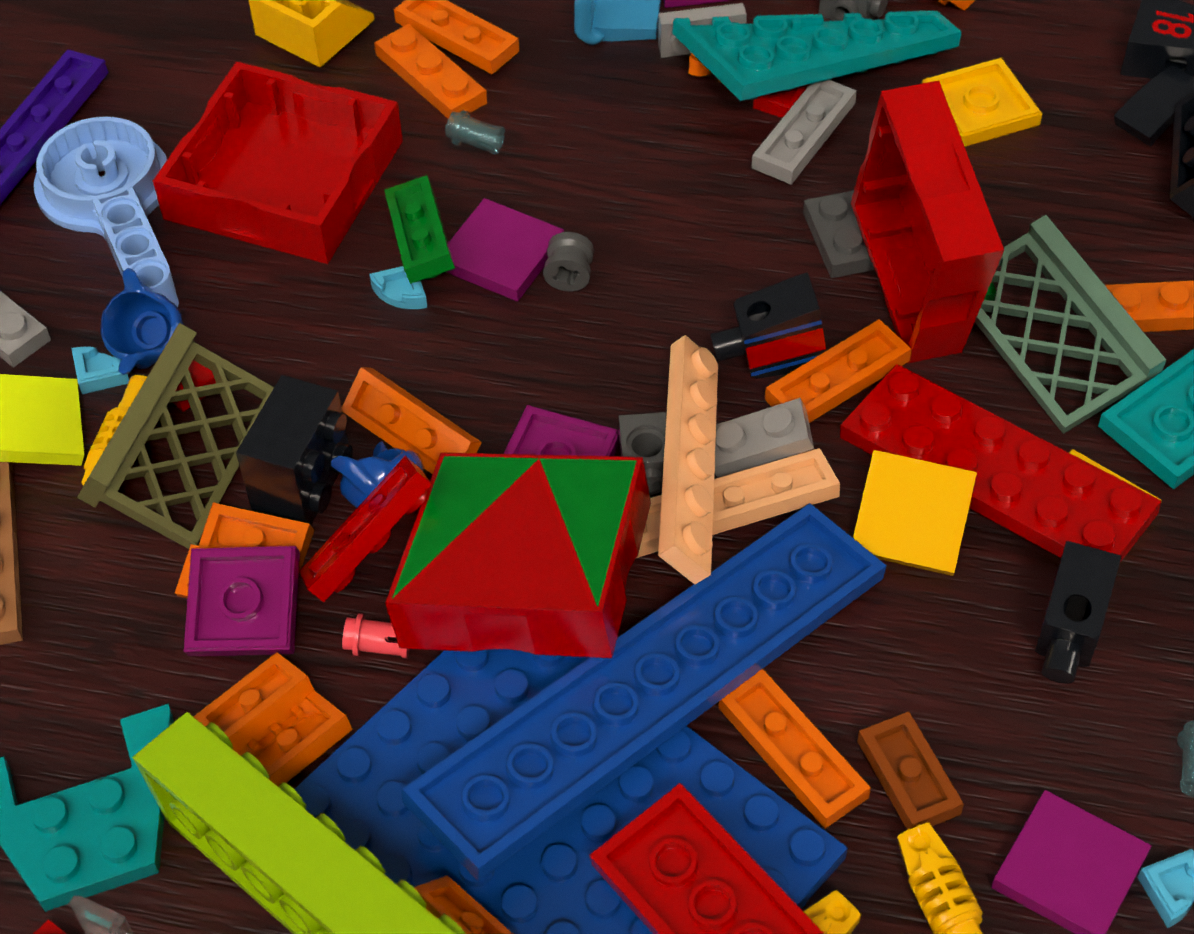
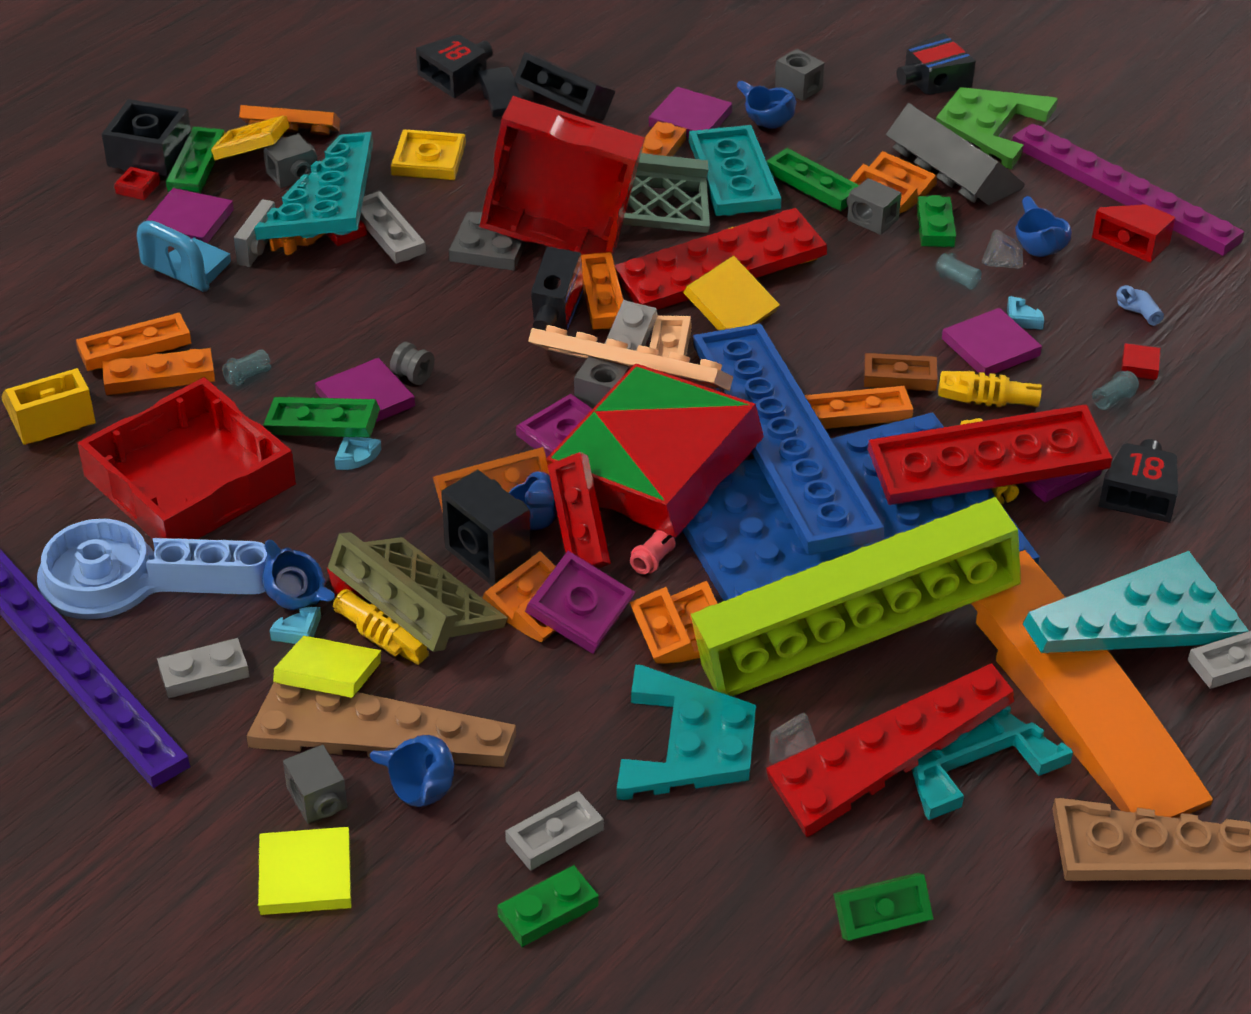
camera: 65 degrees left, 10 degrees down
(1076, 610) = (846, 264): black torso -> none

